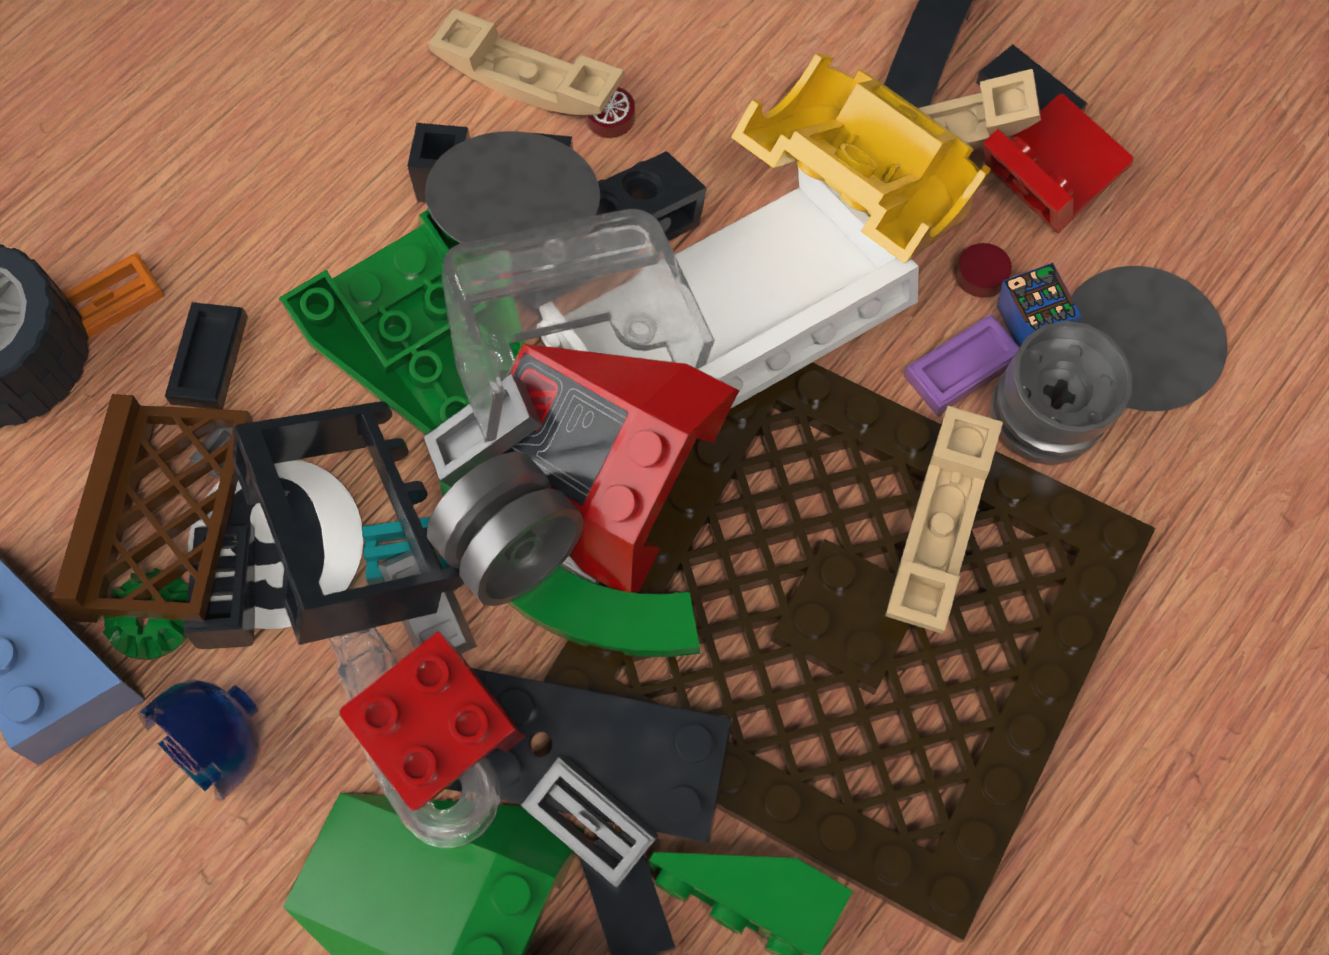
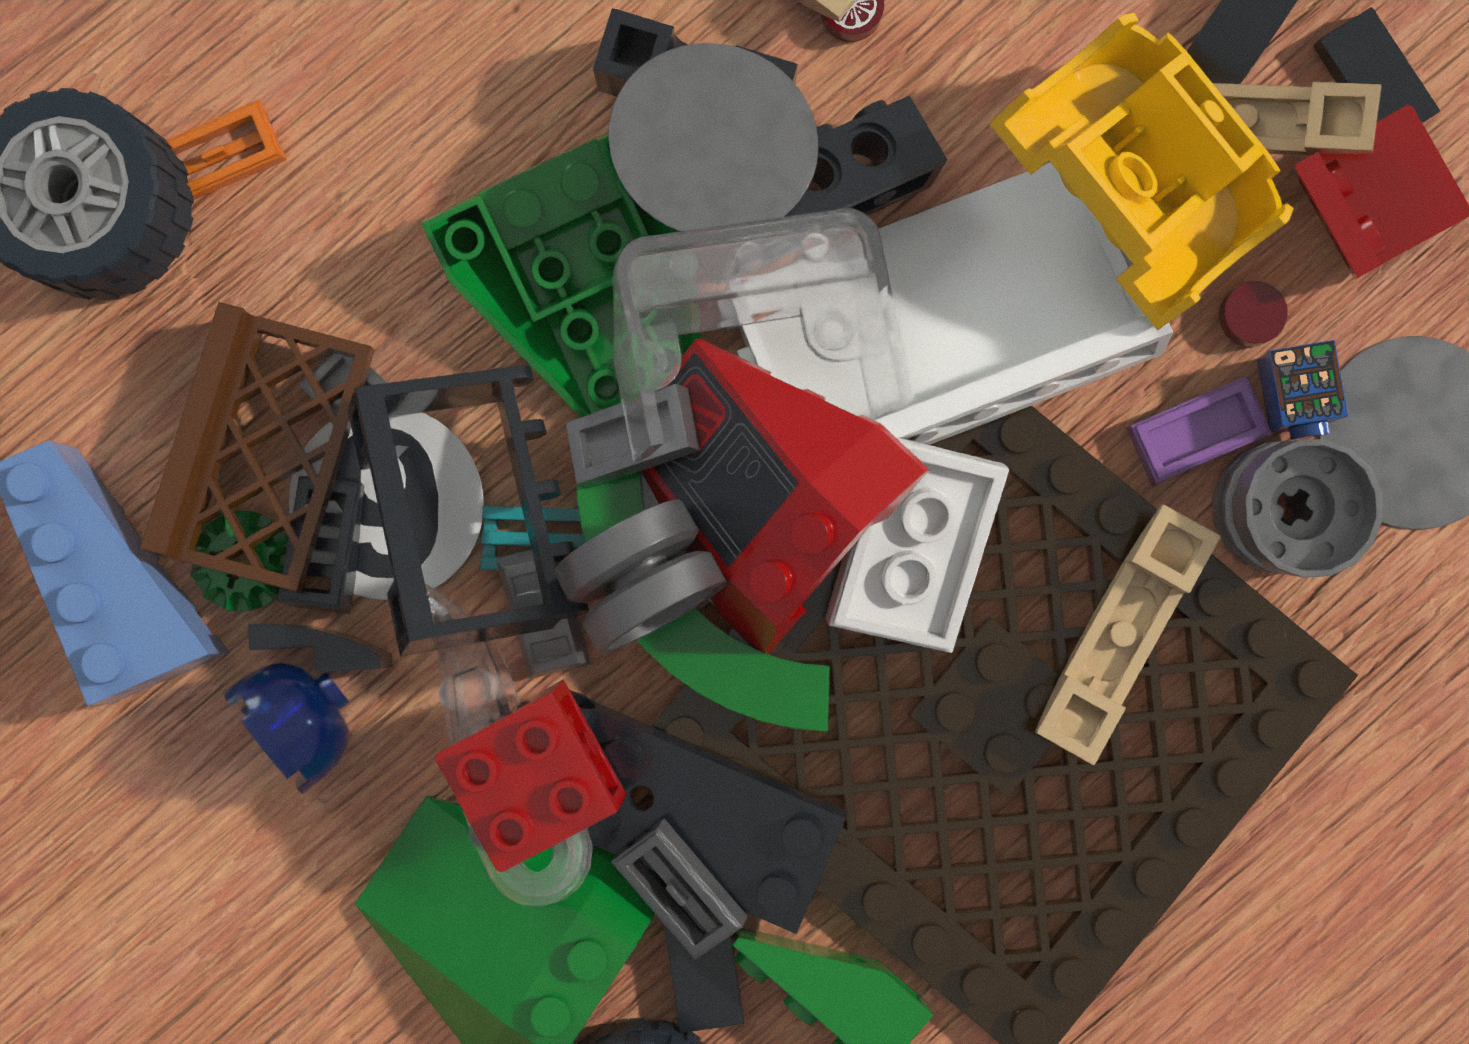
camera: 10 degrees right, 20 degrees up
(206, 356) = (329, 252): black tile -> none
(246, 668) = (332, 648): none -> black slope
(748, 483) = (919, 565): none -> white tile

